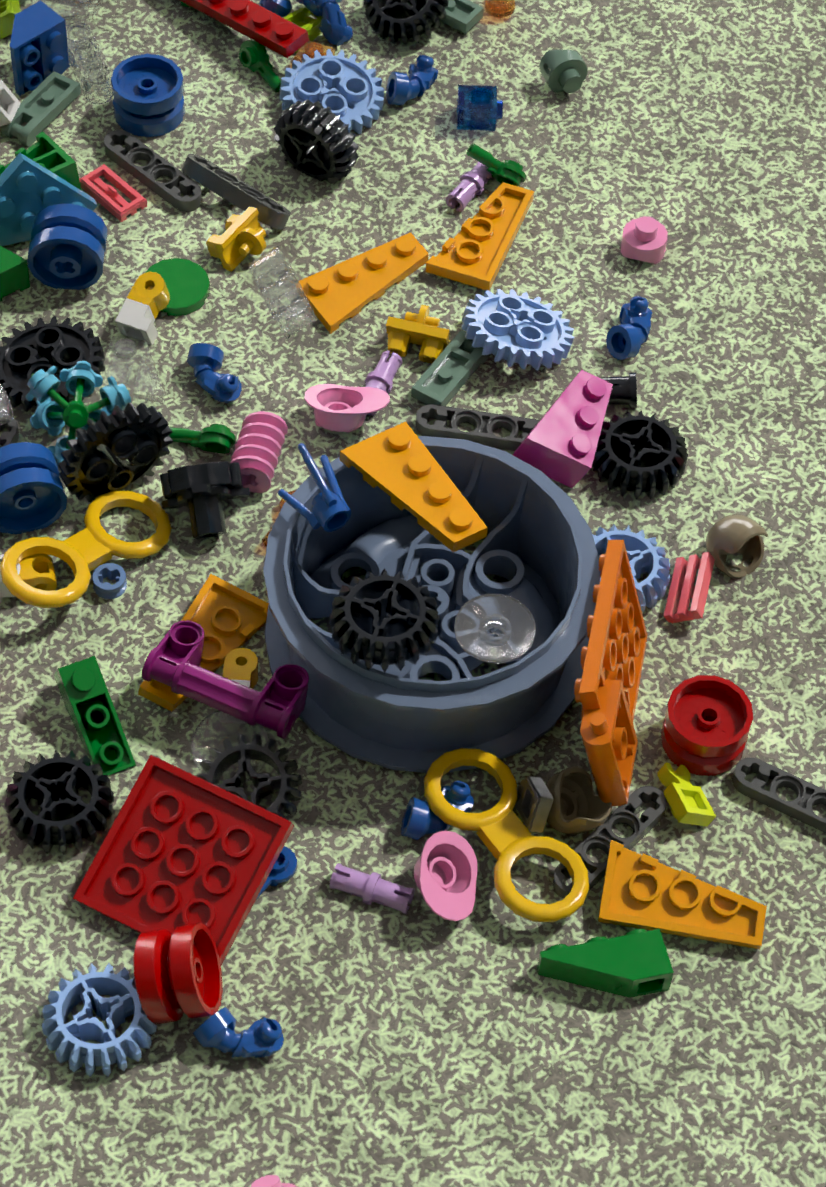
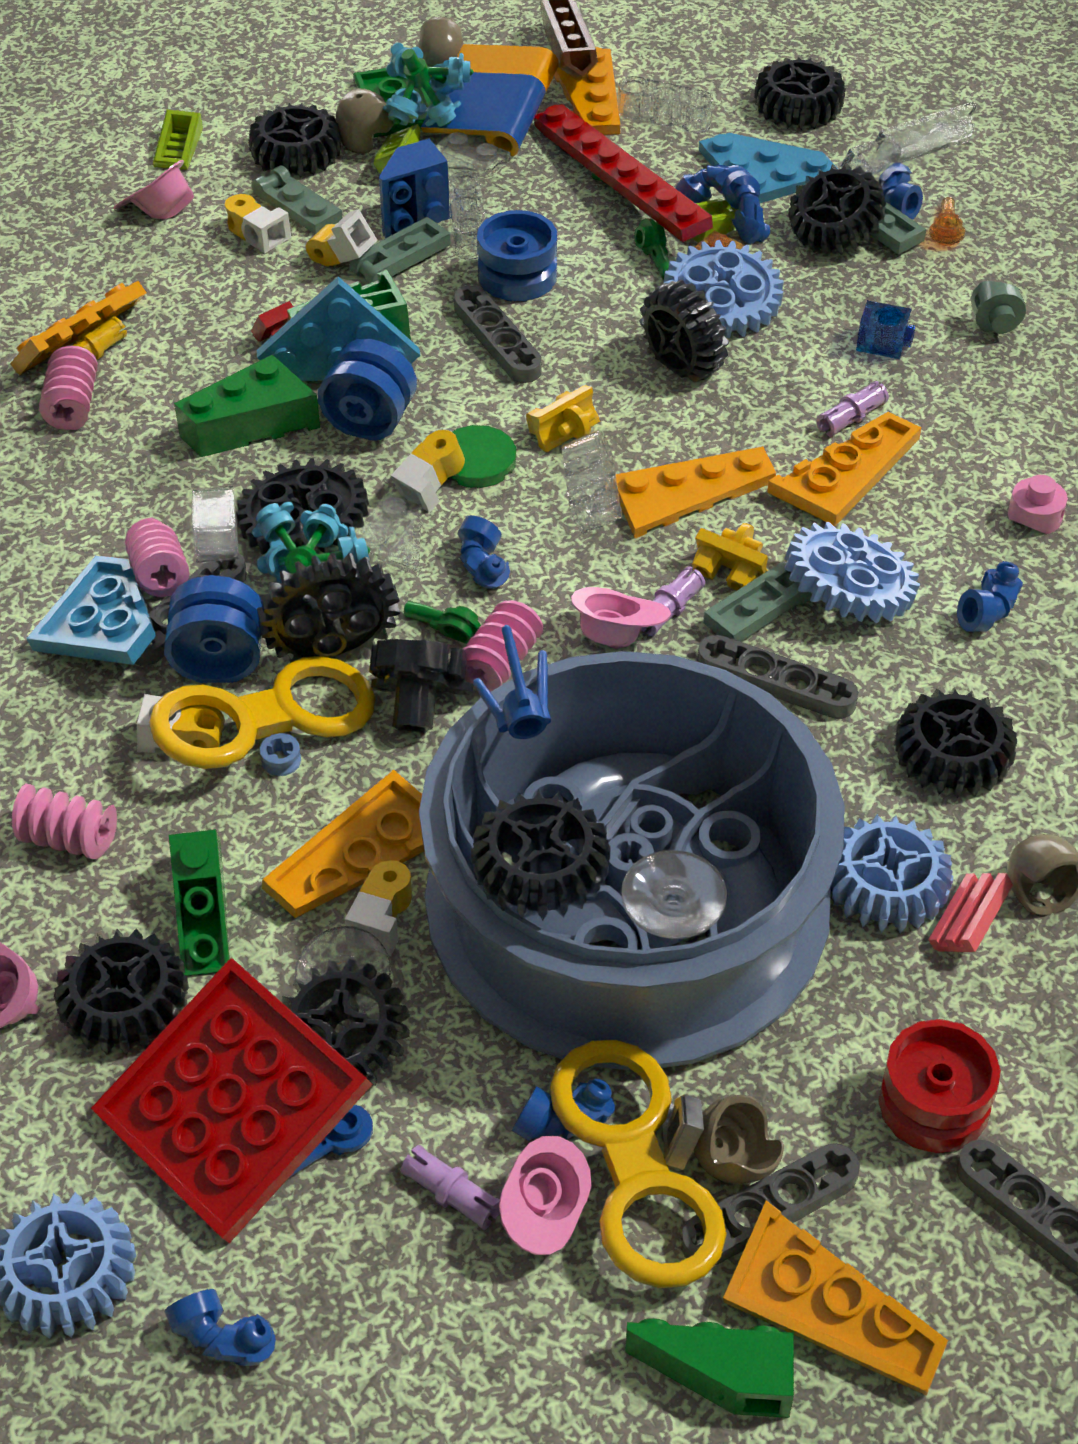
camera: 20 degrees right, 5 degrees down
(100, 196) = (446, 370): coral tile -> none
(177, 666) = (310, 864): magenta piece -> none
(178, 973) = (165, 1231): red wheel -> none
(235, 190) = (579, 369): dark grey beam -> none
(417, 483) = (642, 705): light orange wing -> none
(421, 77) = (830, 290): blue arm -> none
(507, 171) = (898, 402): green plate -> none
(569, 431) = (870, 696): wedge -> none
(612, 676) = (824, 993): orange plate -> none
(623, 390) = (955, 664): black bush -> none
(686, 801) = (885, 1176): neon yellow plate -> none

